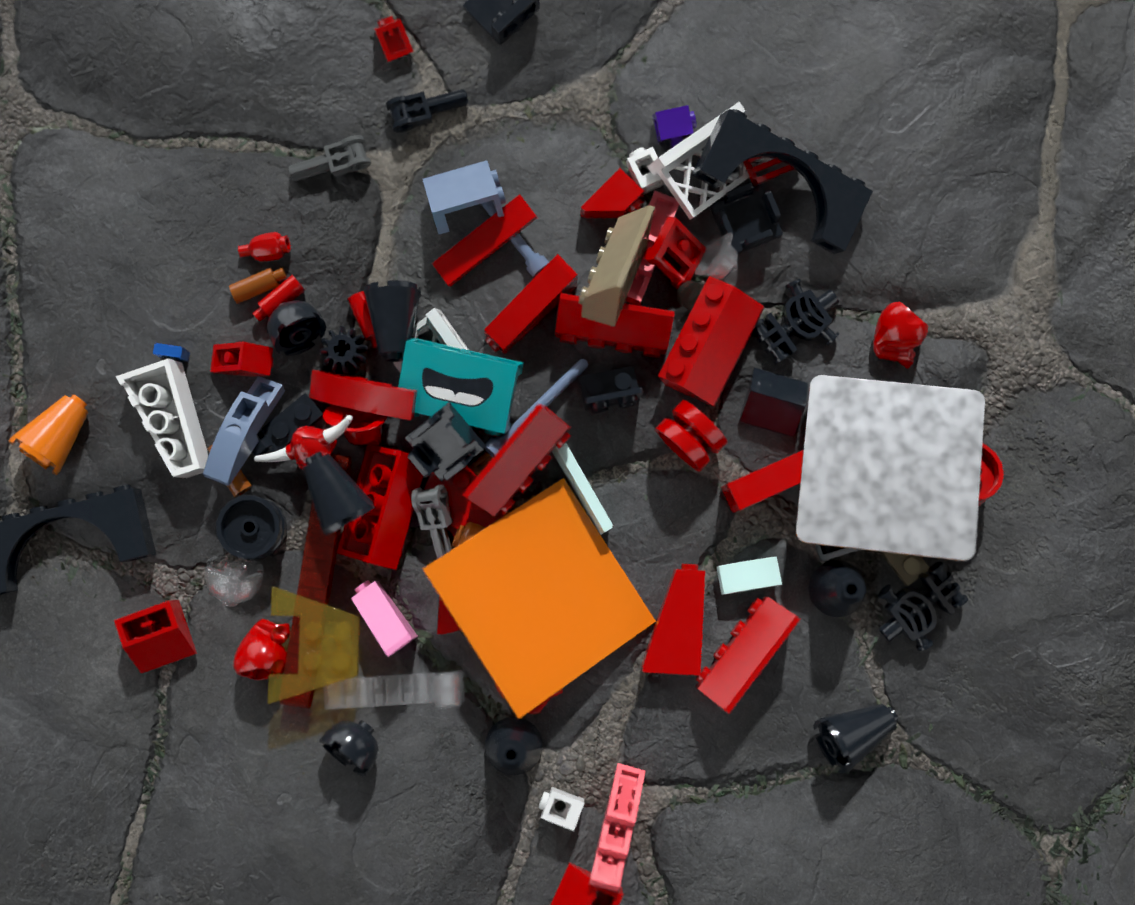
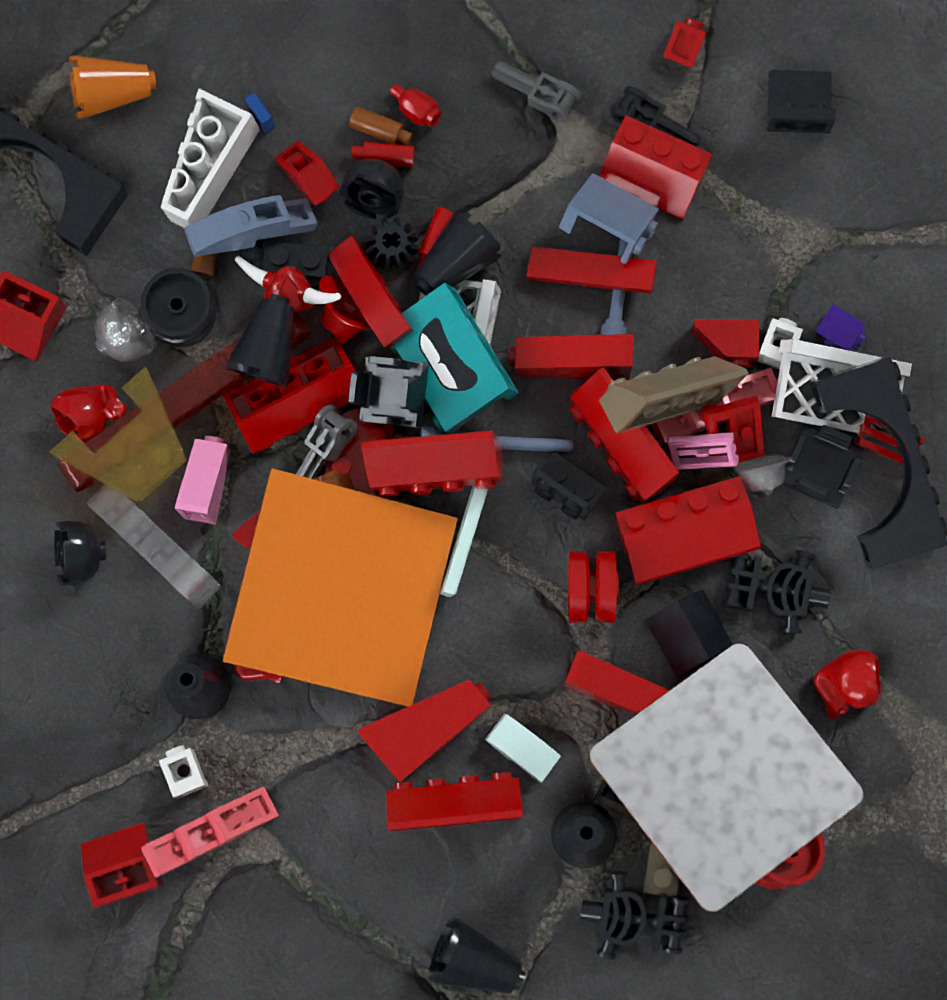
camera: 55 degrees right, 5 degrees down
(457, 136) = (655, 167): none -> red slope
(667, 281) = (702, 446): none -> bright pink tile

